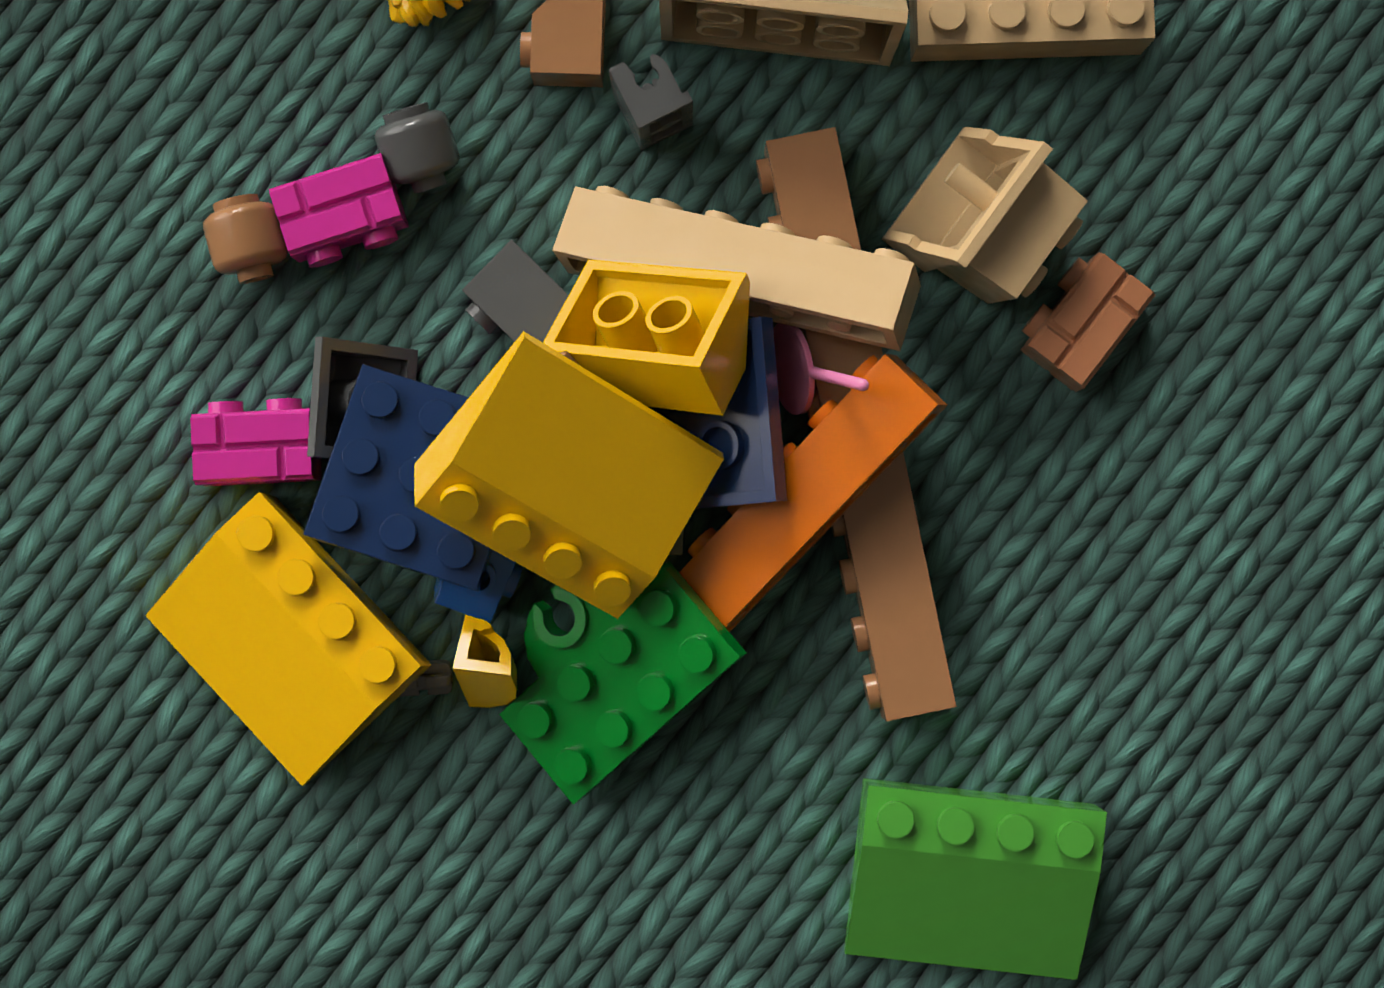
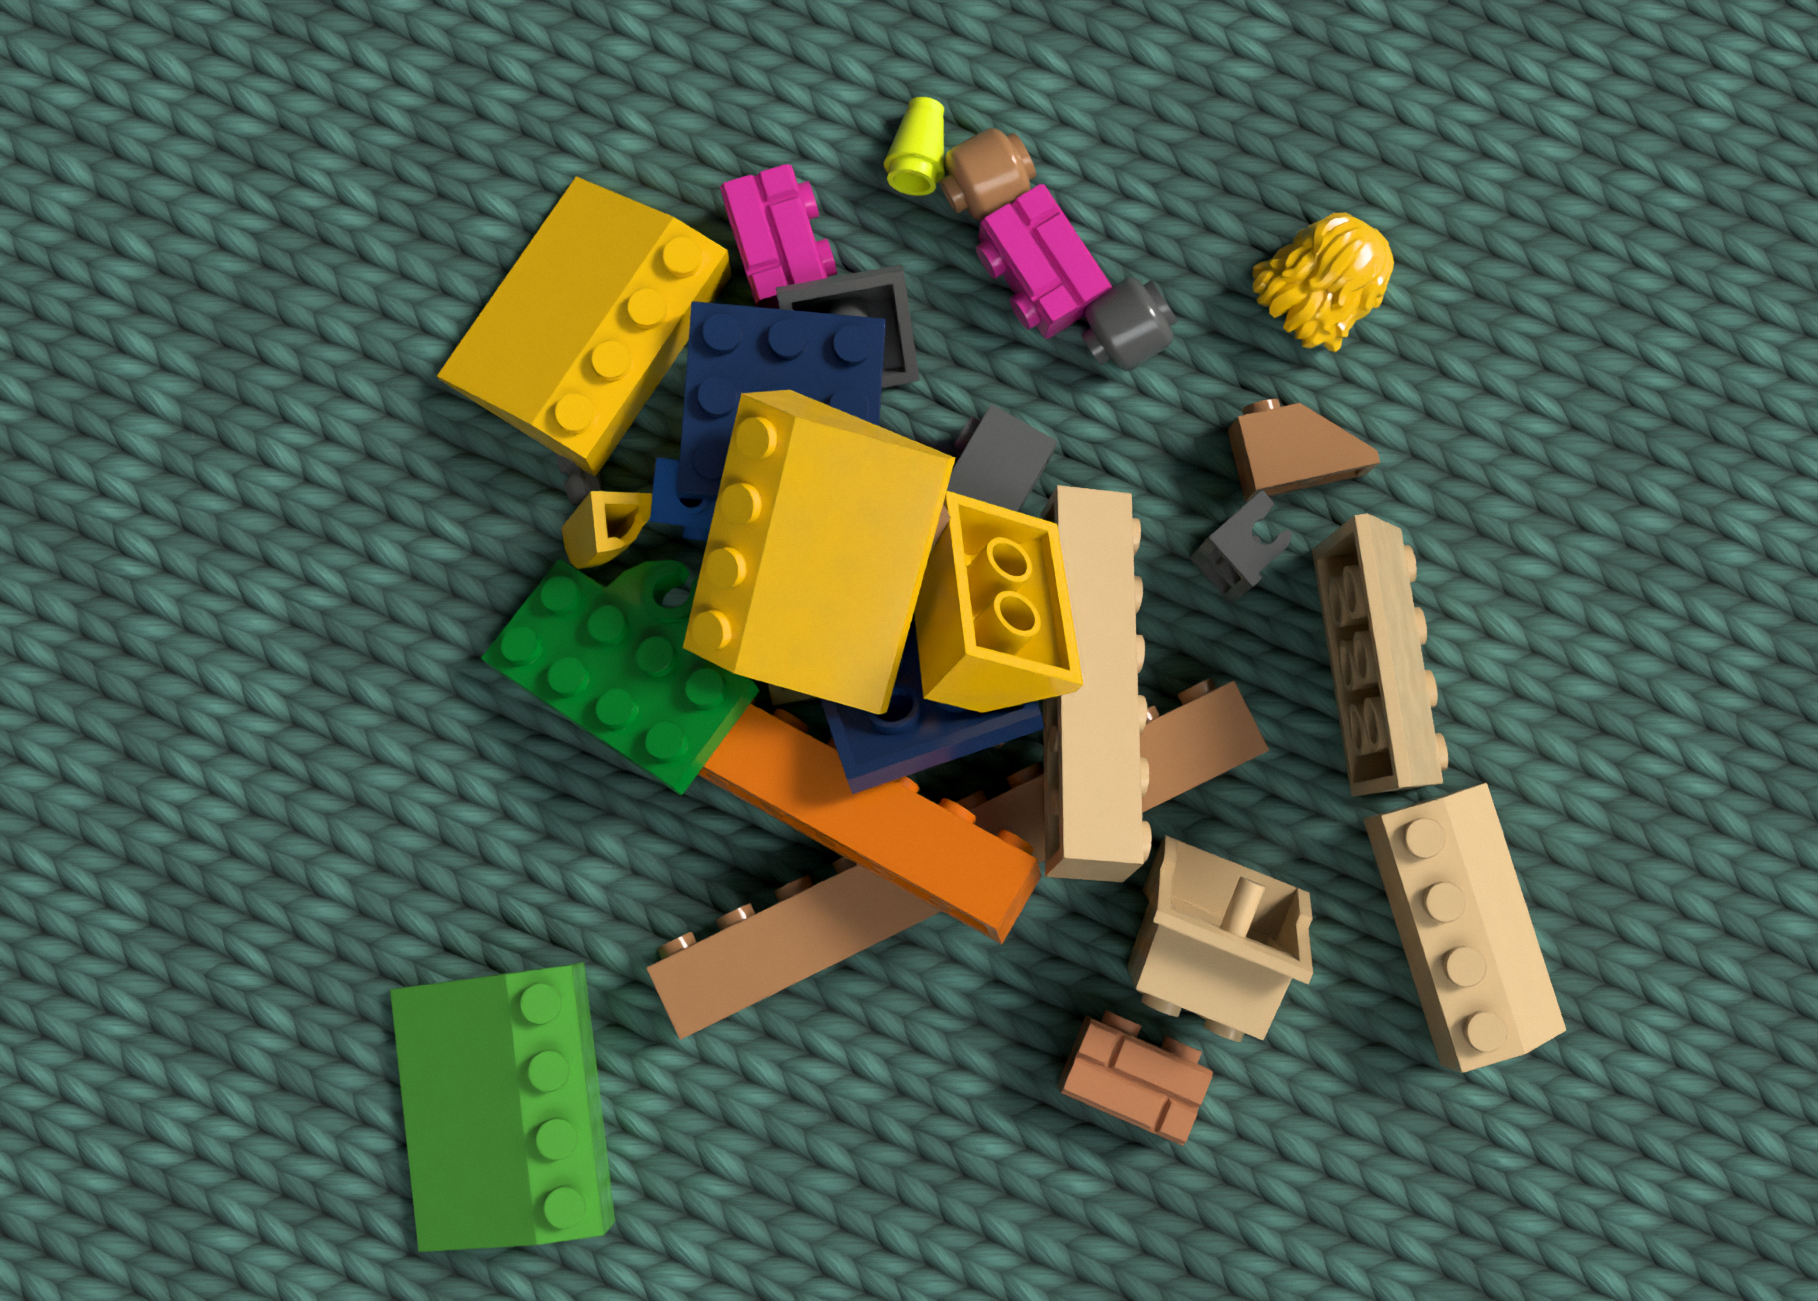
camera: 75 degrees right, 5 degrees down
(202, 295) = (918, 149): none -> neon yellow cone
(798, 375) = (996, 774): bright pink piece -> none

